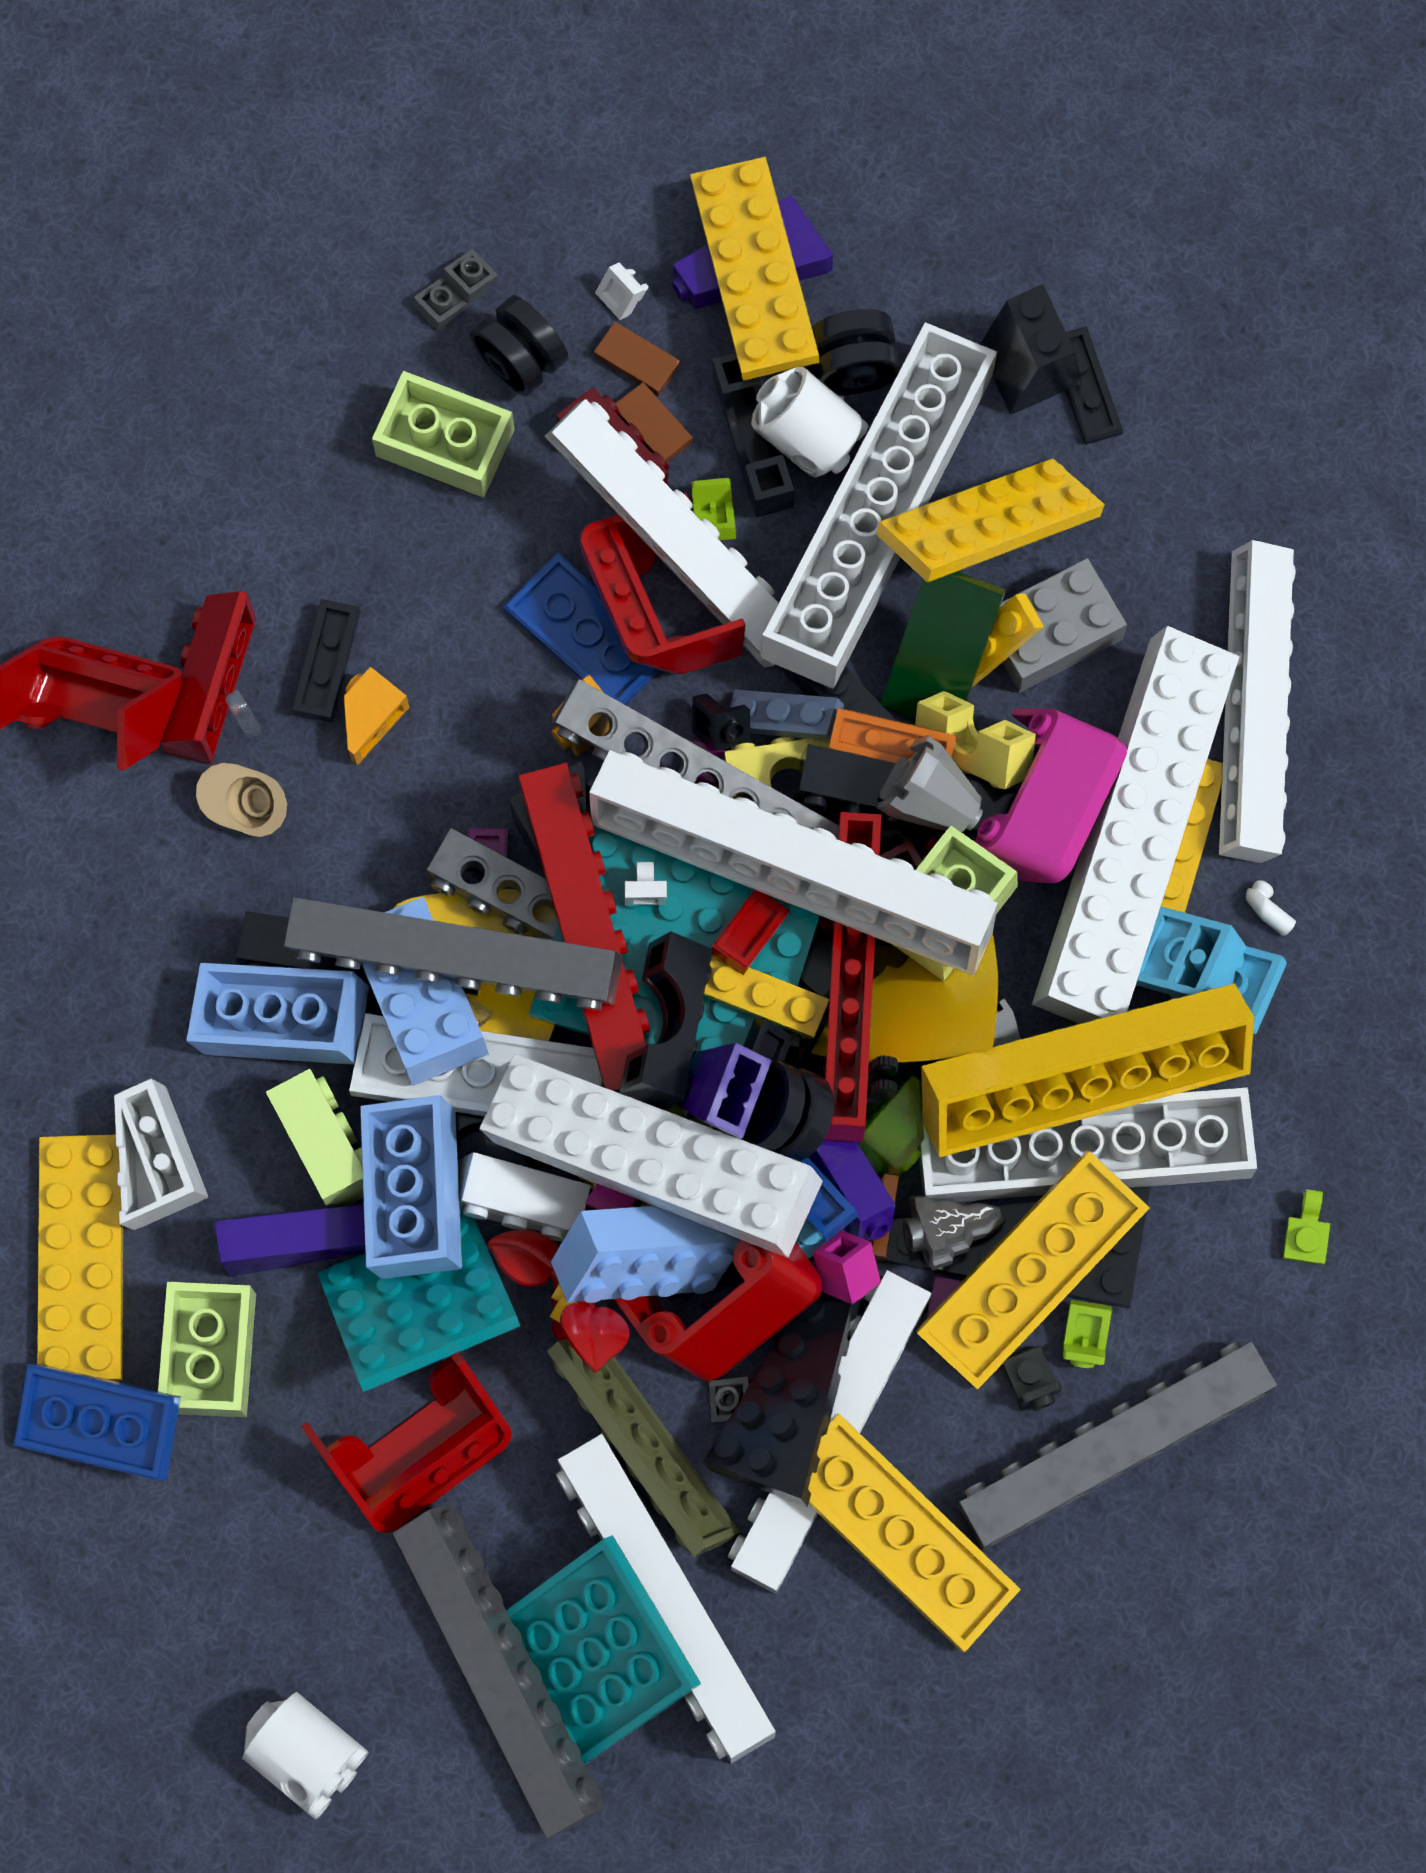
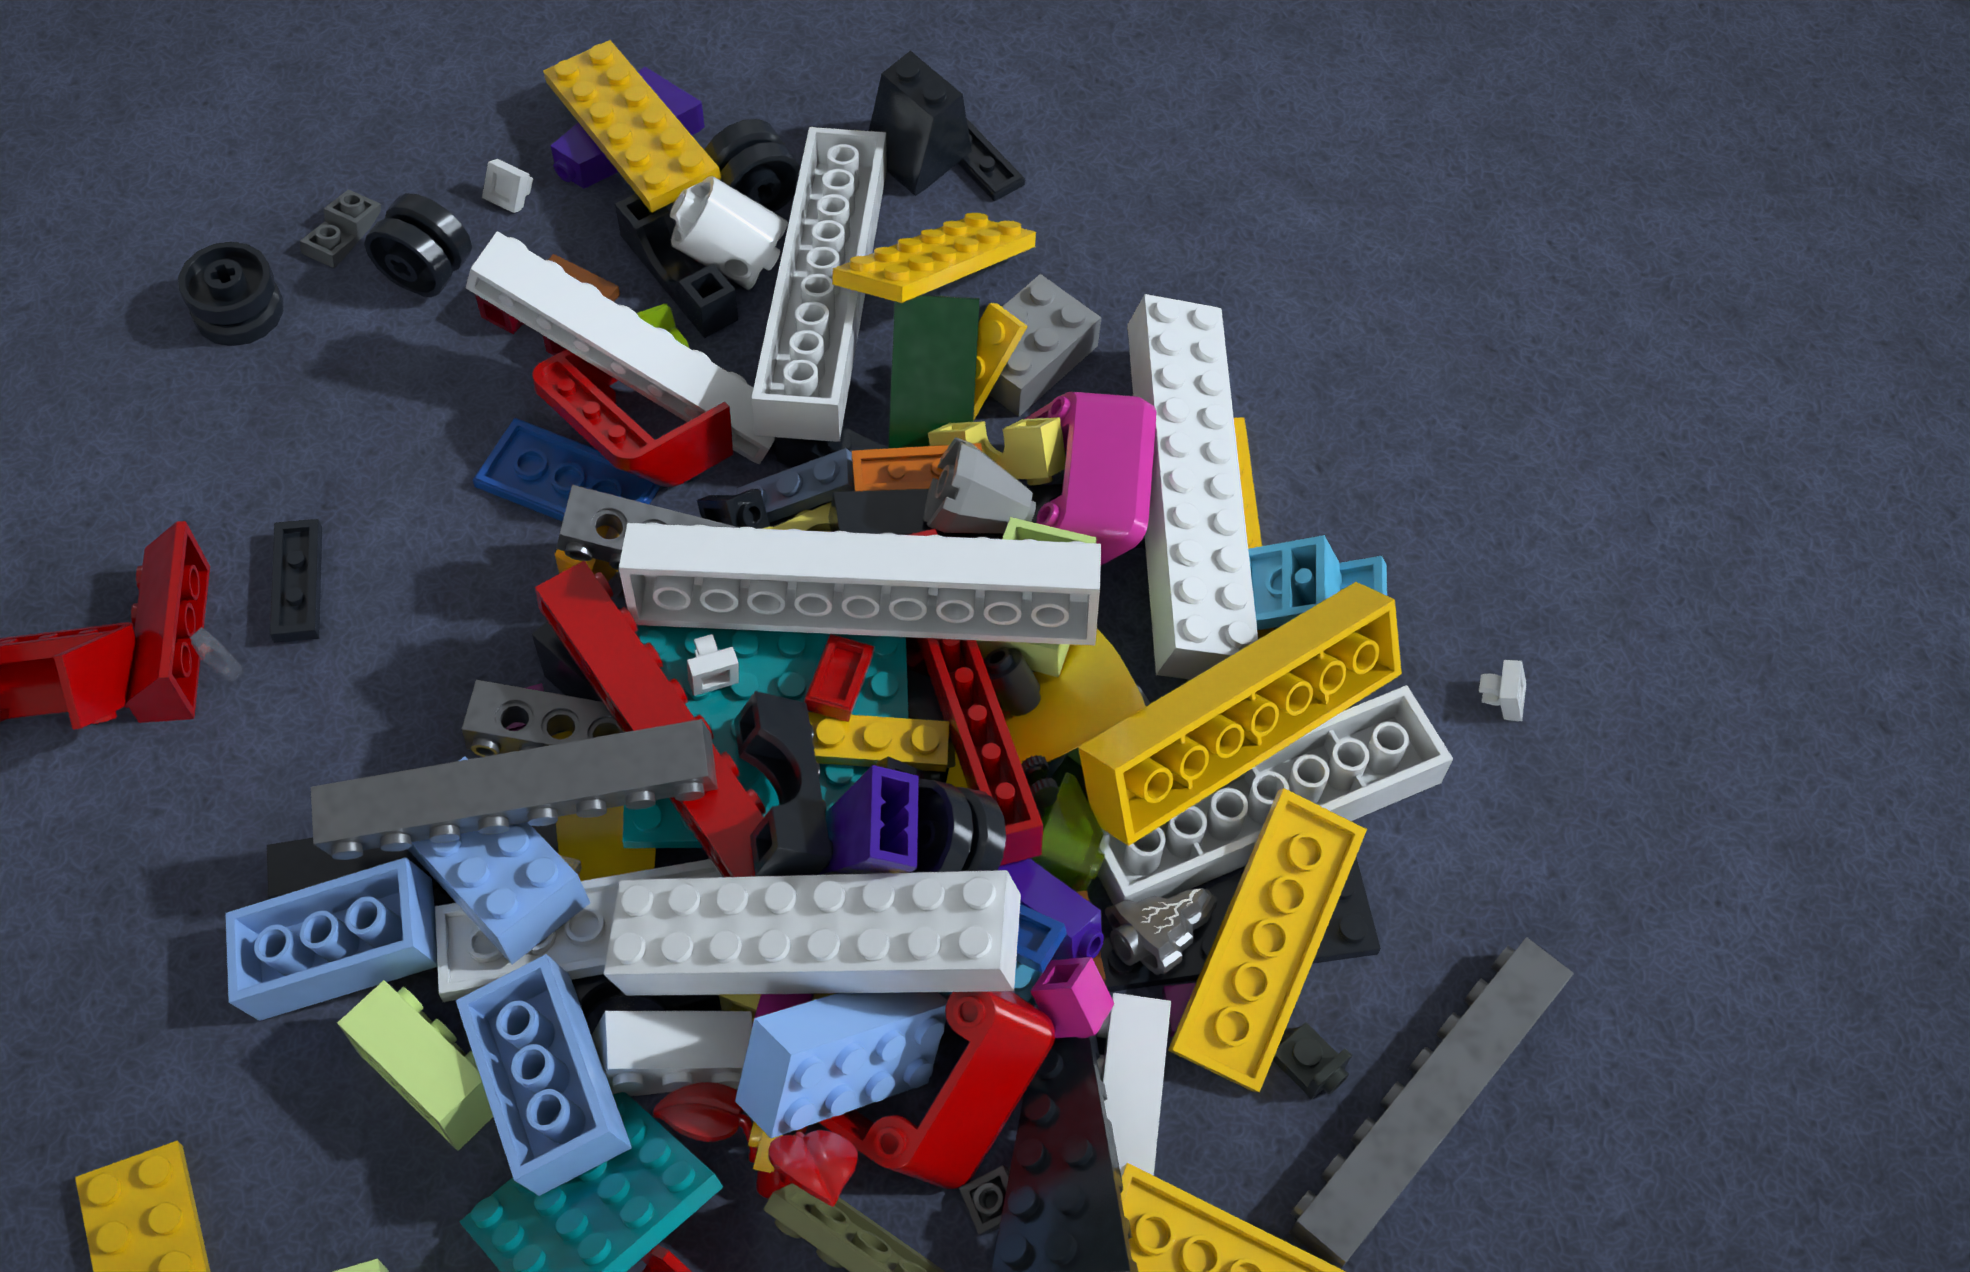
camera: 25 degrees left, 15 degrees down
(154, 1157) = (222, 1152): white wedge -> none
(241, 799) = (233, 734): tan piece -> none
(290, 1239) = (412, 1191): dark purple slope -> none
(338, 342) = (231, 293): none -> black wheel
(370, 711) = (359, 612): light orange slope -> none
(443, 434) = (363, 342): yellowish green brick -> none
(636, 358) = (545, 236): dark orange tile -> none
(899, 975) = (1012, 681): none -> black brick
(1086, 1333) = (1349, 991): lime bracket -> none
(1257, 703) = (1257, 369): white brick -> none
(1269, 912) = (1329, 524): white arm -> none
(1306, 1237) = (1521, 820): lime plate -> none
(1347, 1115) = (1506, 689): none -> white tile

